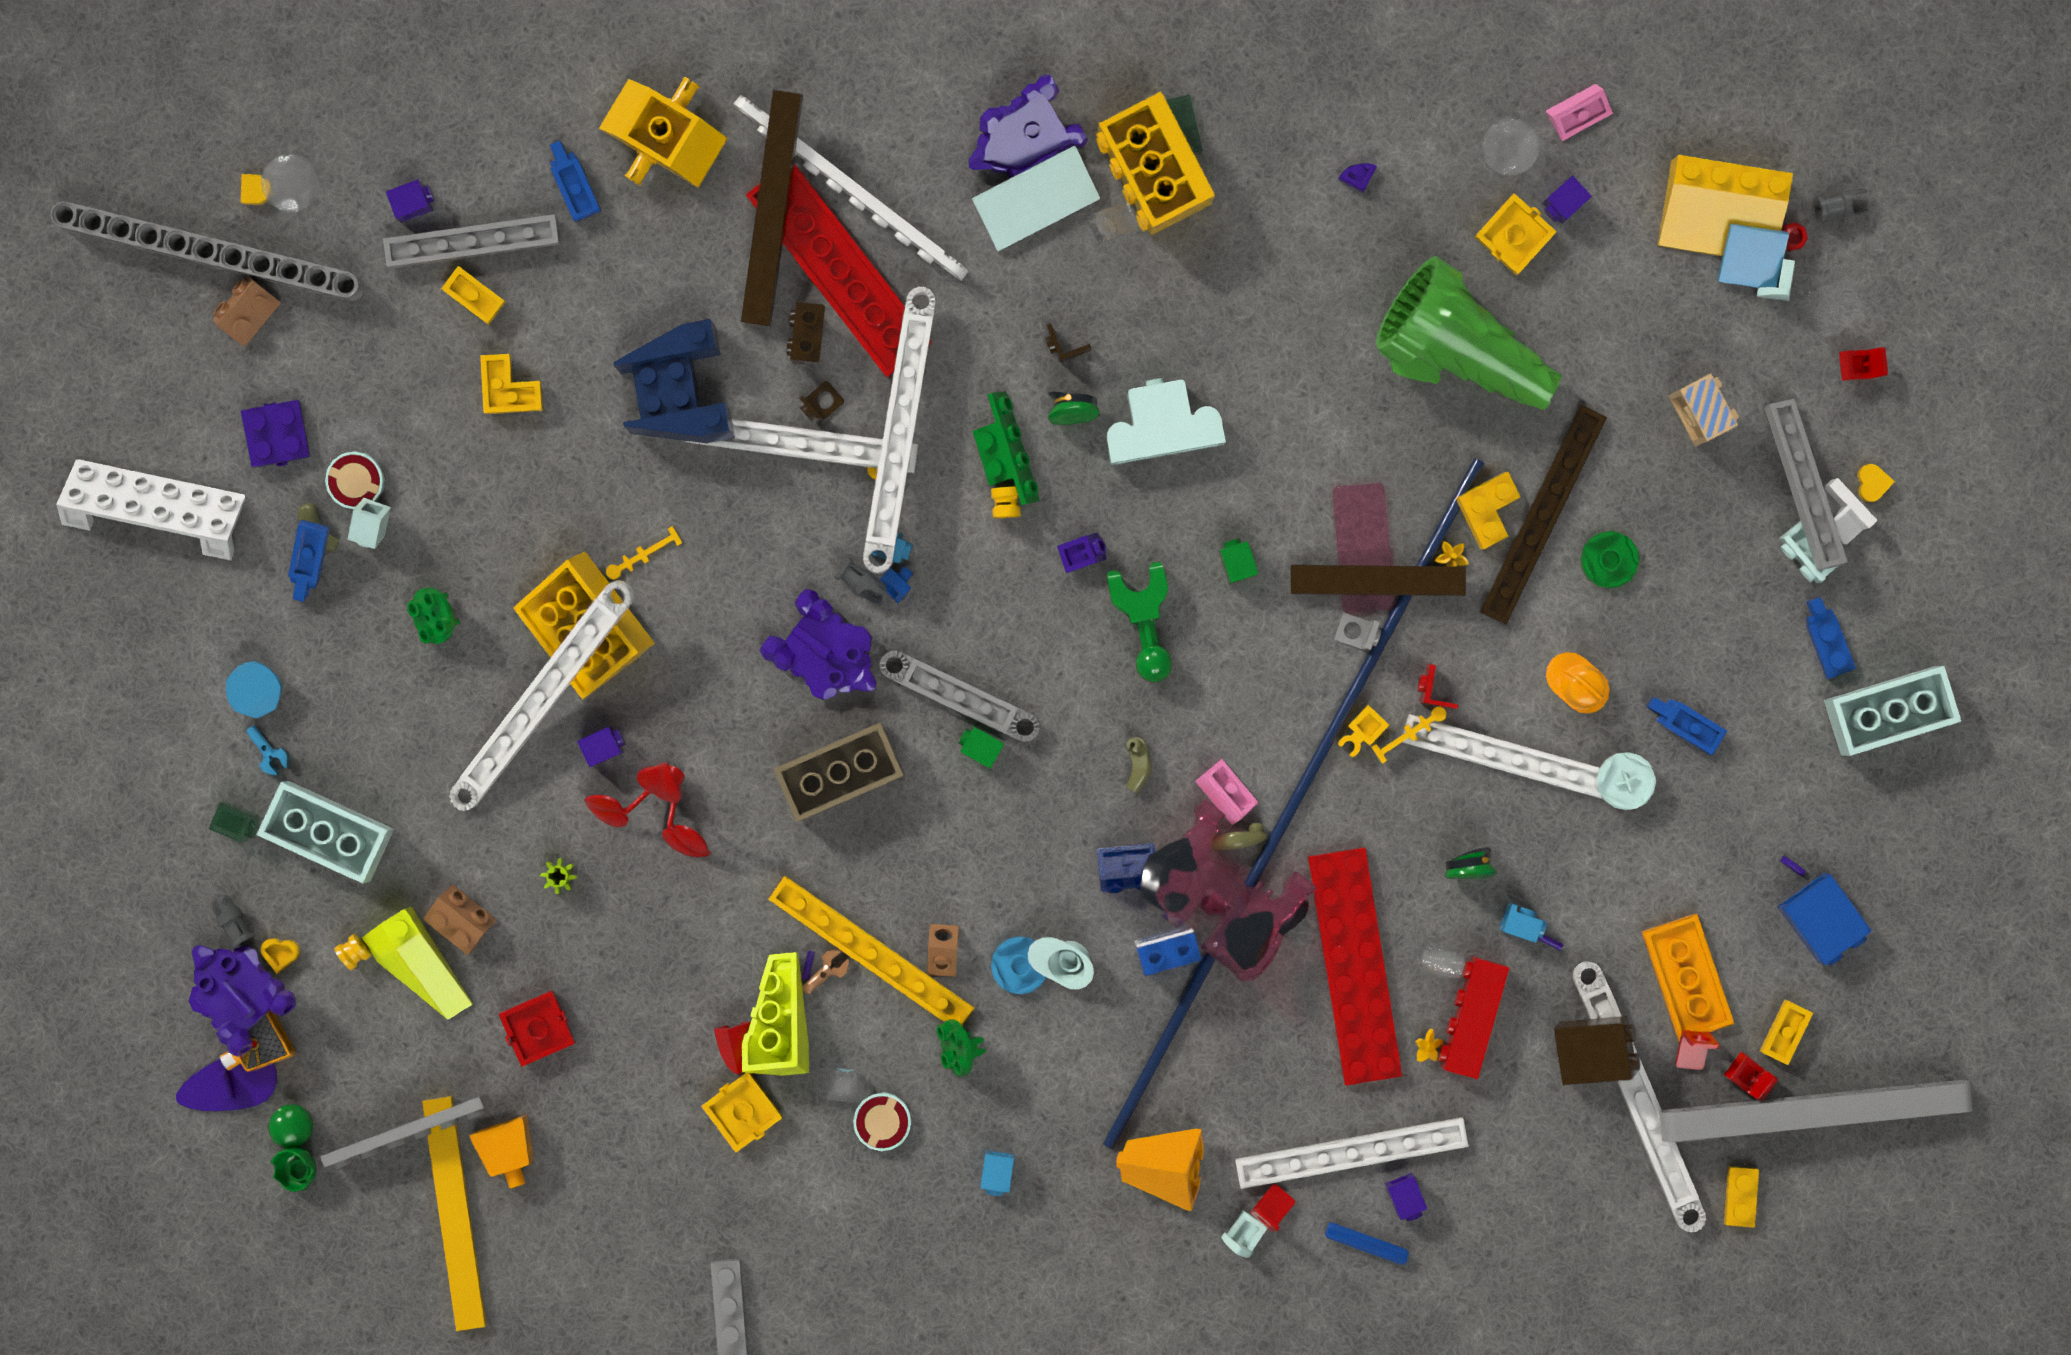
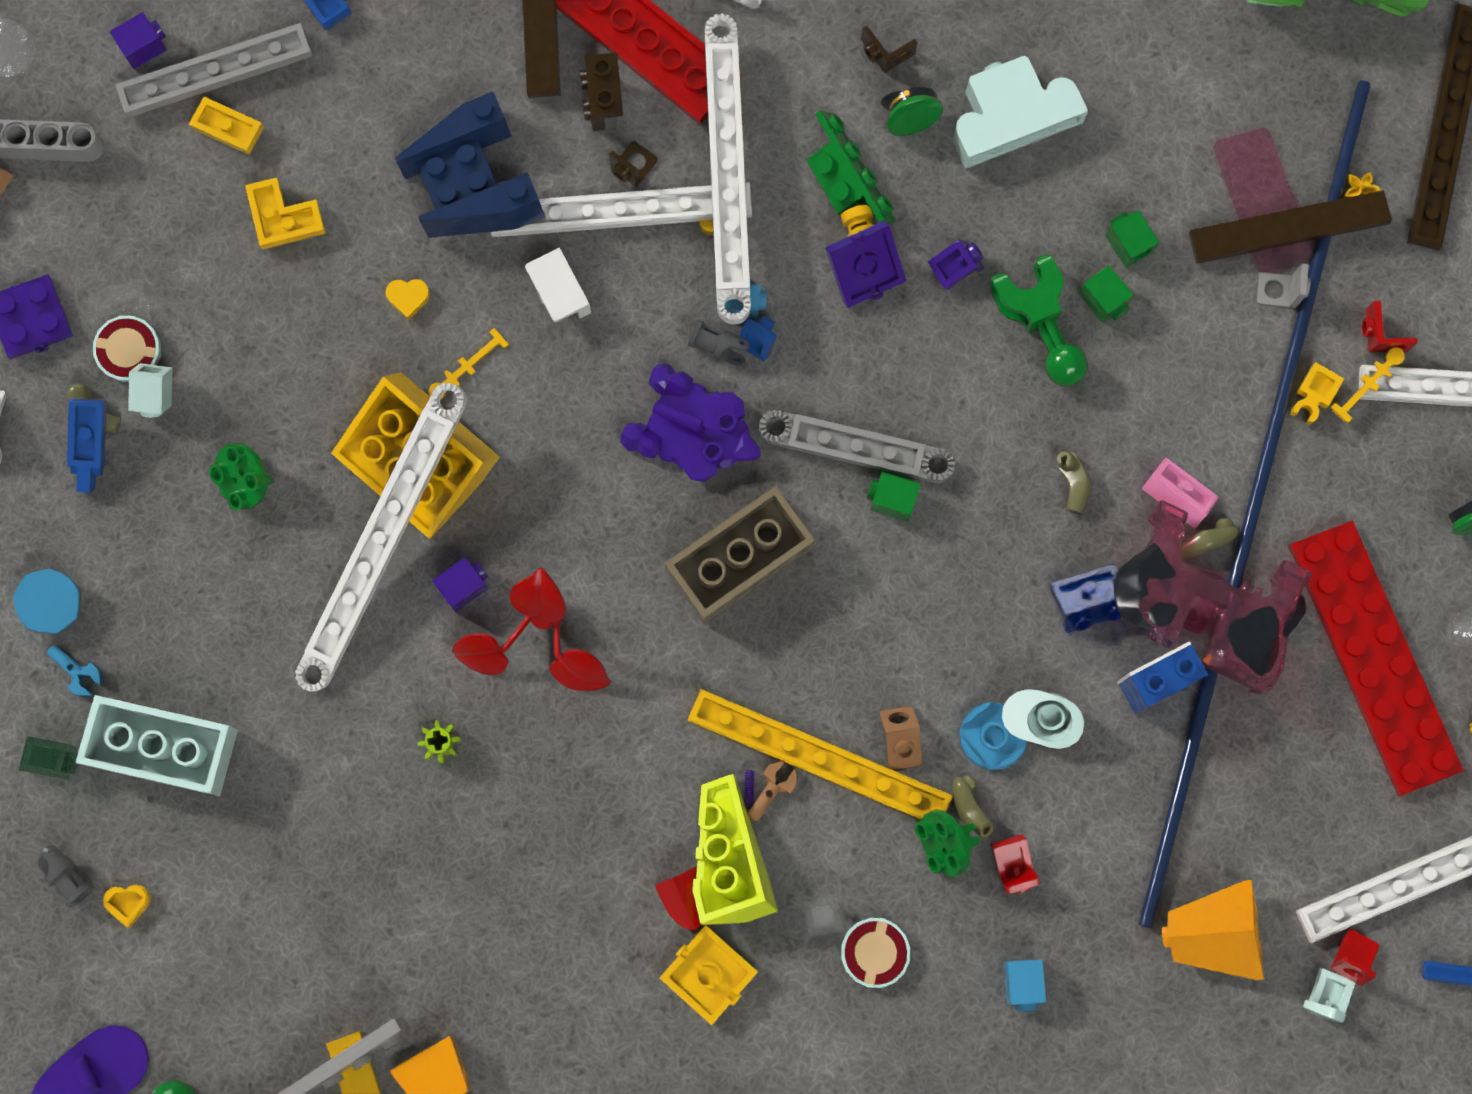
camera: 10 degrees left, 10 degrees down
(235, 993) = (81, 959): dark purple shield -> none
(268, 1047) = (117, 1013): torso -> none
(352, 951) = (212, 881): yellow wheel -> none
(414, 959) = (284, 874): neon yellow wedge -> none
(459, 919) = (332, 818): medium nougat bracket -> none
(537, 1028) = (446, 927): red plate -> none
(603, 483) = (407, 297): none -> yellow tile
(732, 504) = (557, 286): none -> white panel
(984, 1020) = (967, 806): none -> olive arm
(1001, 540) = (866, 264): none -> dark purple plate
(1011, 1076) = (1014, 864): none -> red bracket
(1204, 608) = (1106, 295): none -> green brick
(1480, 508) = (1381, 130): yellow plate -> none

